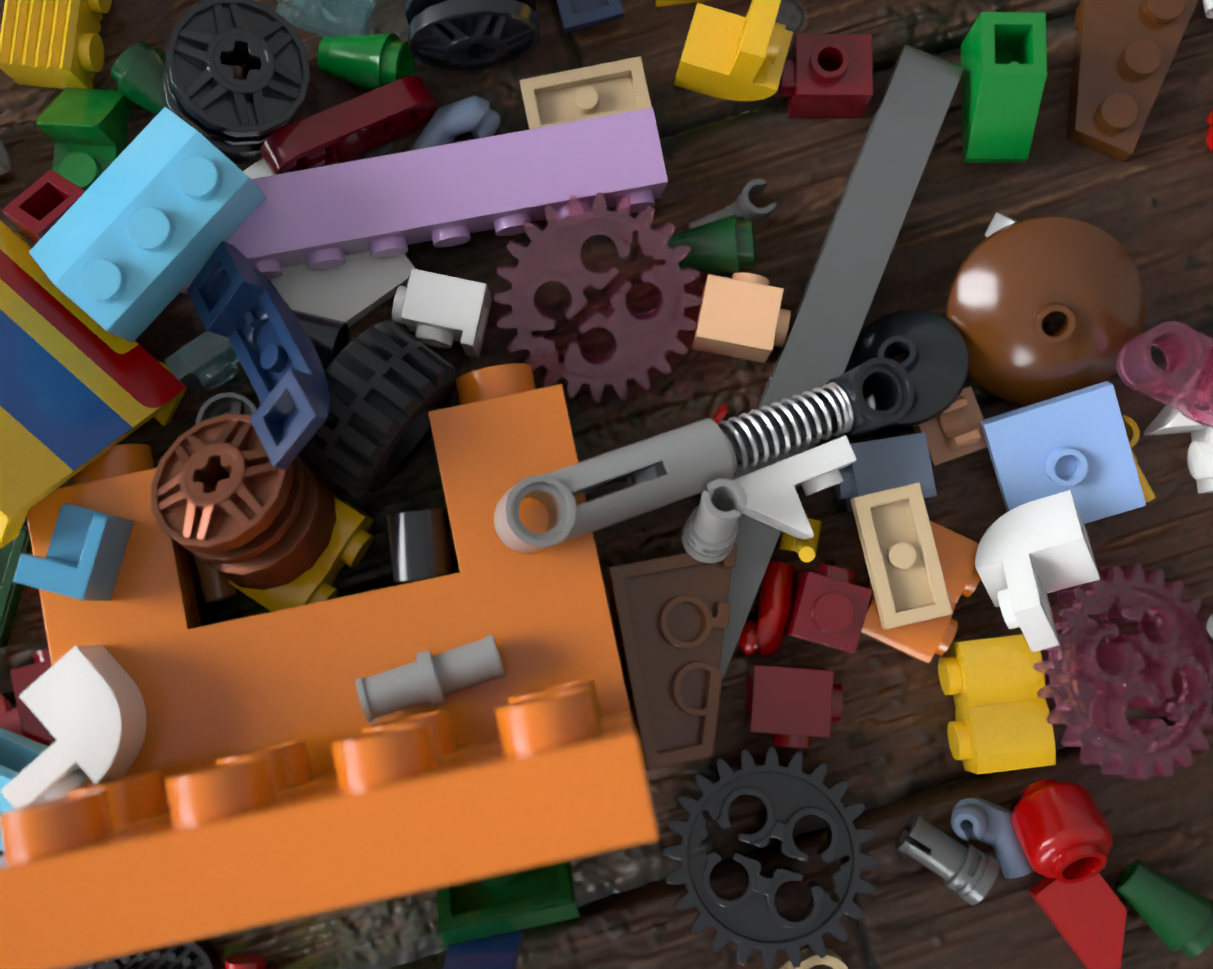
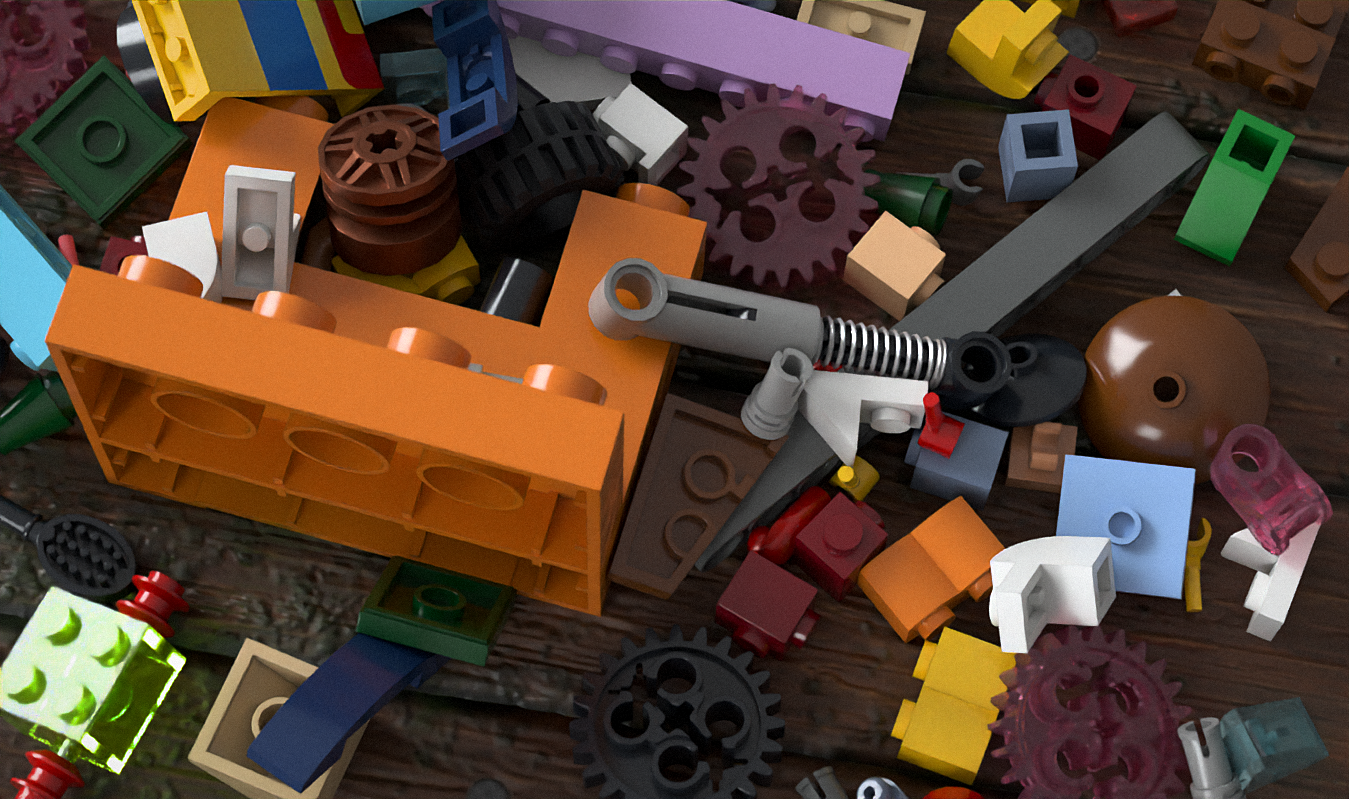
camera: 25 degrees right, 15 degrees down
(81, 555) = (242, 144): dark azure panel -> none
(140, 632) = (258, 231): none -> white slope
(814, 147) = (1037, 155): none -> sand blue brick
(874, 469) = (940, 430): none -> red hand
(901, 556) = (927, 514): tan plate -> none

